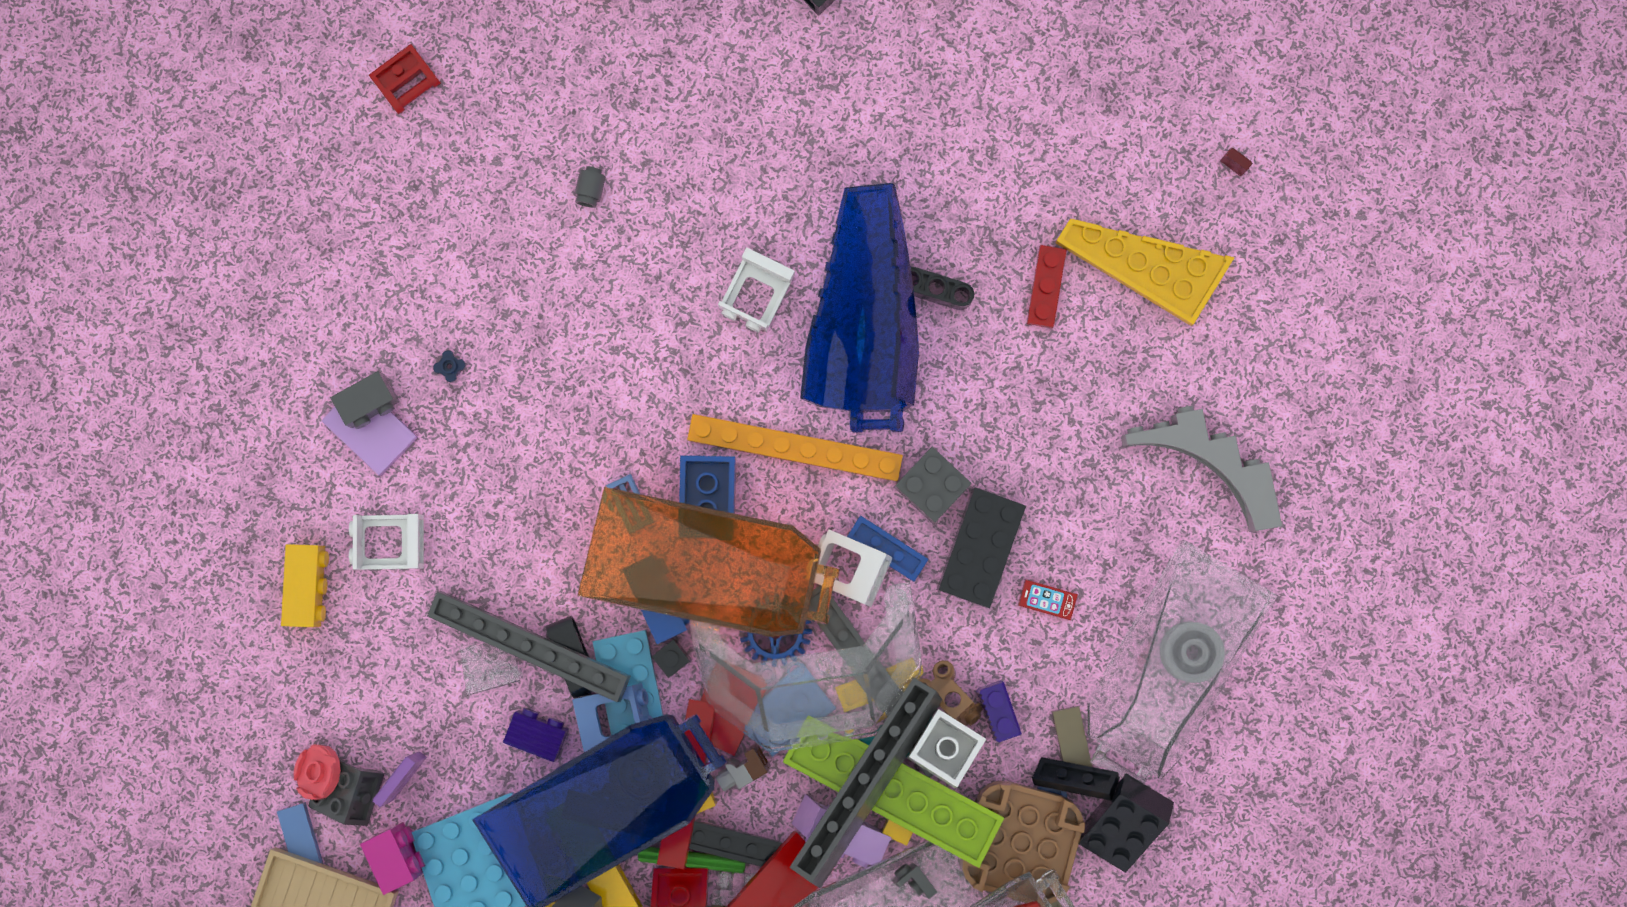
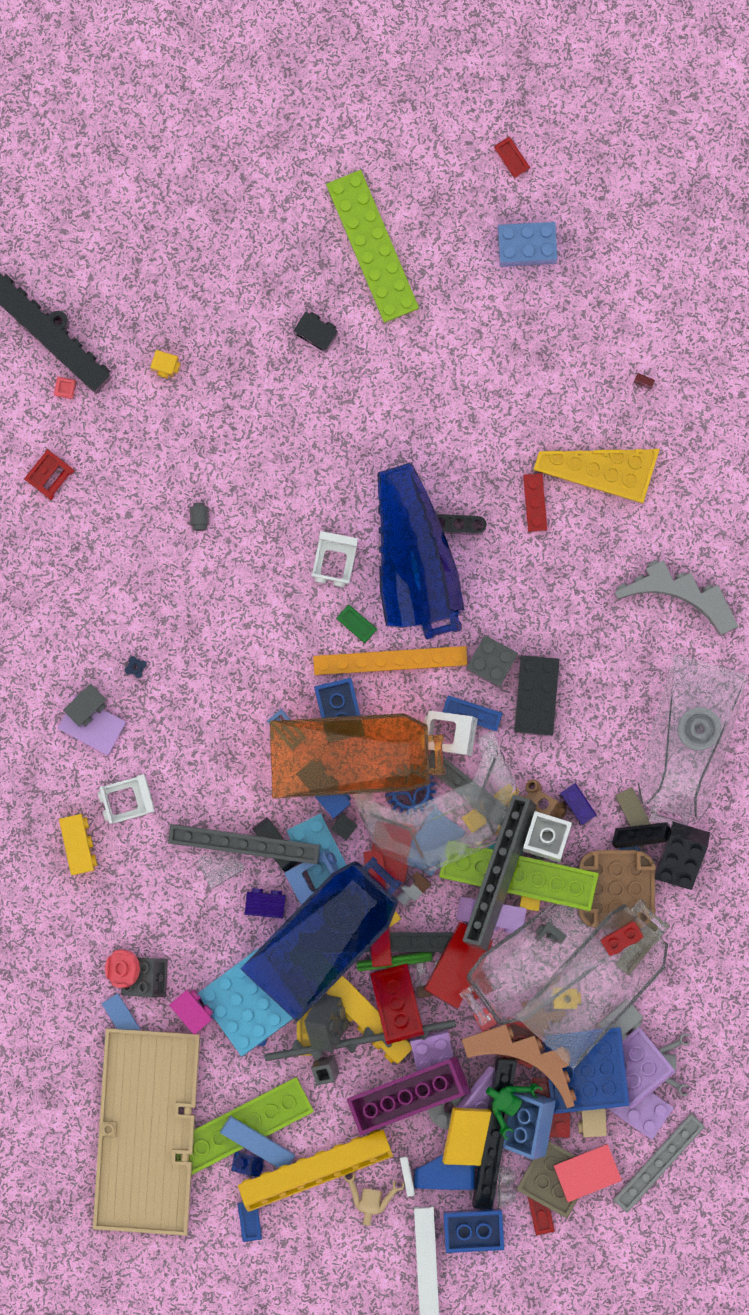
camera: 10 degrees left, 0 degrees up
(399, 779) = (181, 956): medium lavender tile -> none
(763, 386) = (356, 623): none -> green tile
(1047, 599) = (592, 719): tile -> none

